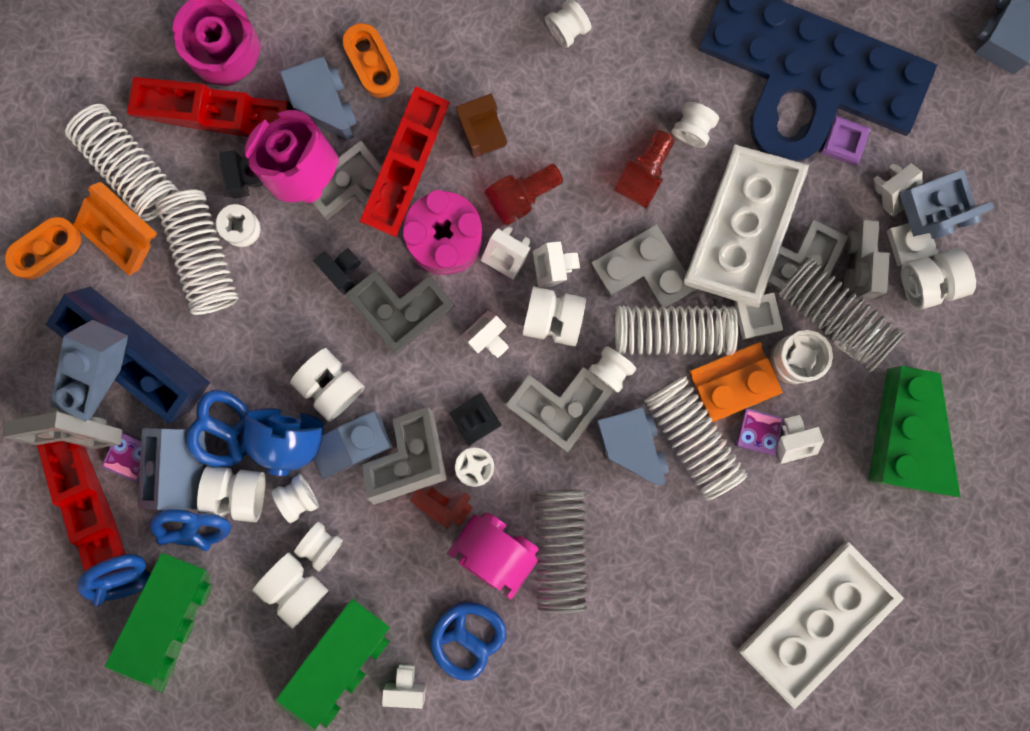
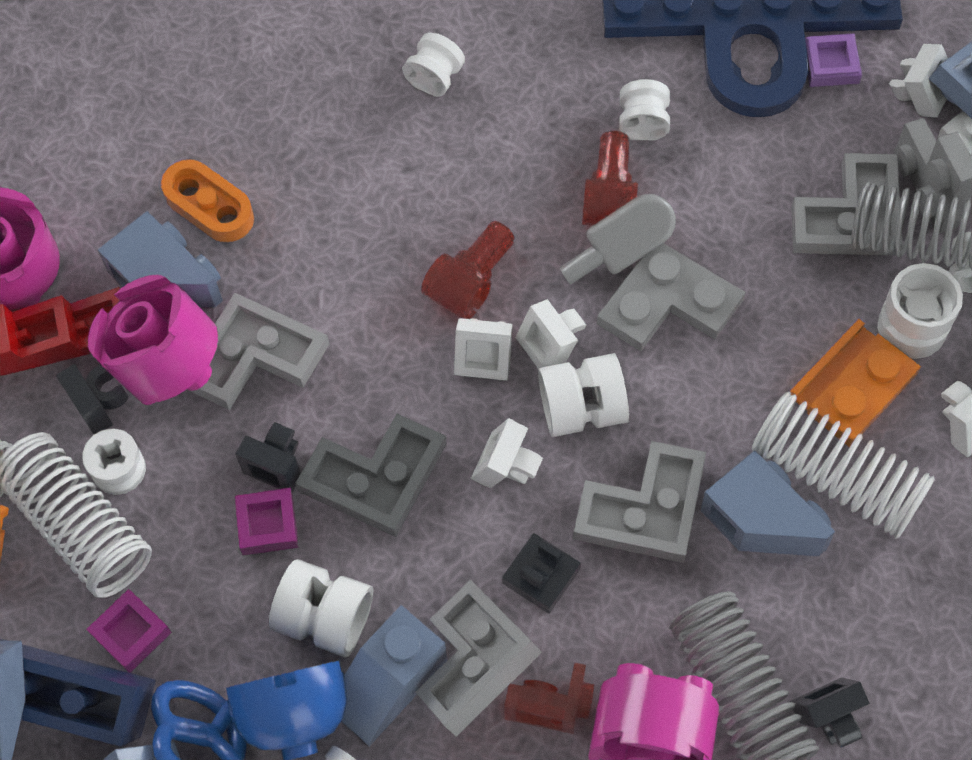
camera: 15 degrees left, 20 degrees down
(205, 344) = (129, 630): none -> magenta plate
(318, 309) = (266, 521): none -> magenta plate
(404, 162) = (303, 292): red slope -> none
(439, 211) = (399, 329): dark pink brick -> none
(474, 467) = (576, 621): white wheel -> none
(481, 125) = (377, 218): reddish brown panel -> none
(609, 586) = (832, 708): none -> black tile
(612, 369) = (691, 425): white wheel -> none
(634, 215) = (624, 237): none -> light grey piece
(726, 327) = (670, 355): white piece -> none
(746, 225) = (767, 194): white tile -> none
(759, 432) = (918, 429): tile -> none
(761, 320) = (839, 290): white plate -> none

